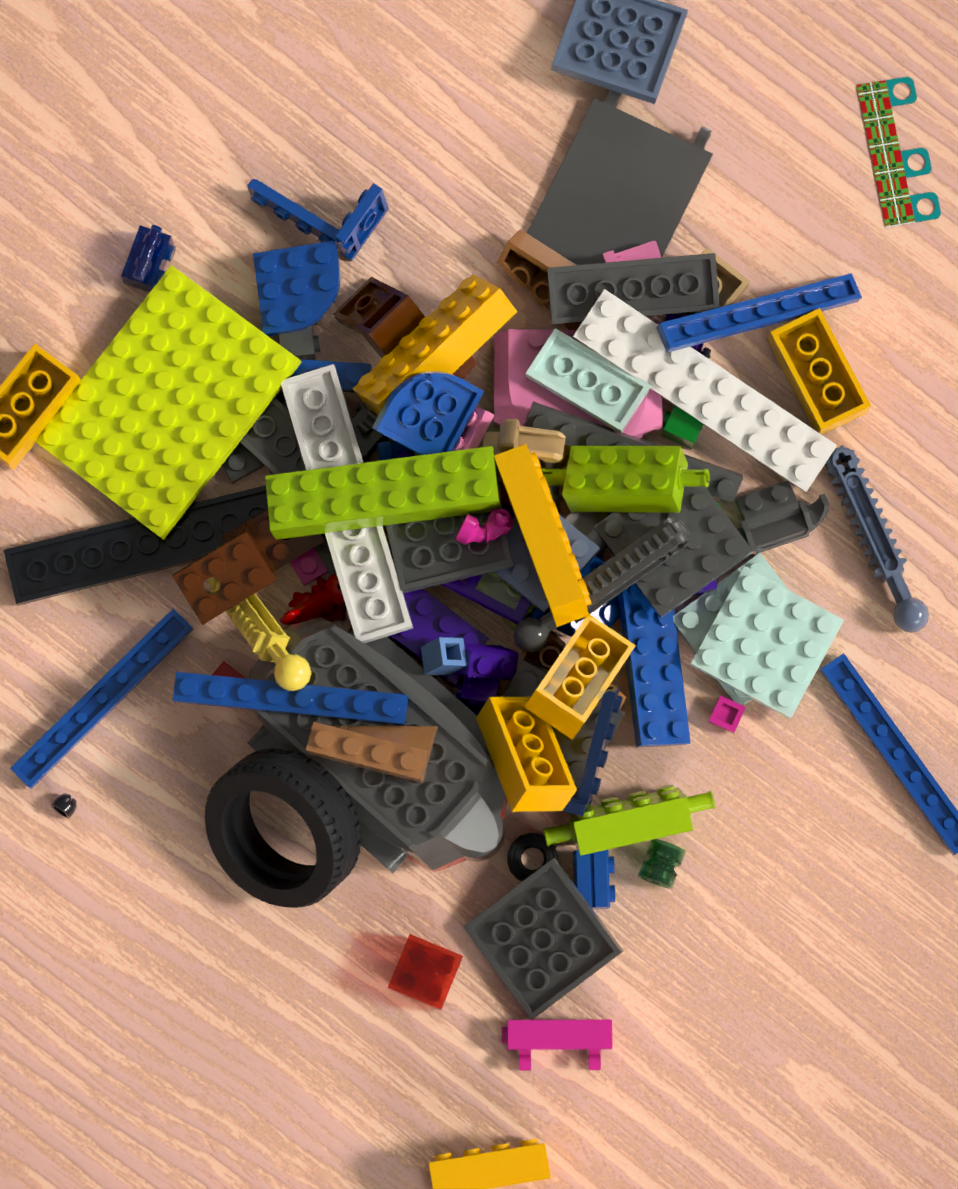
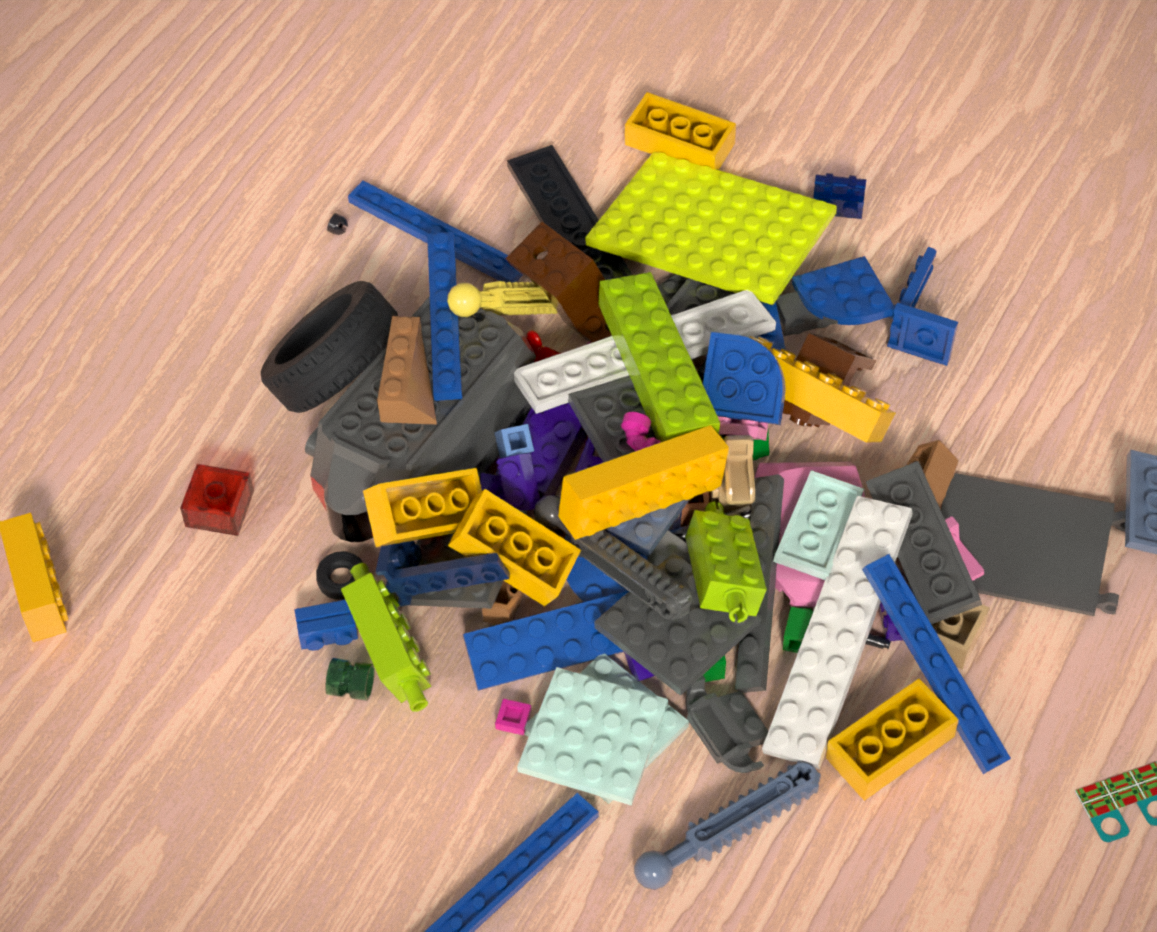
camera: 85 degrees right, 25 degrees down
(543, 939) = (260, 587): dark grey plate -> none
(558, 1035) = (169, 622): dark pink brick -> none

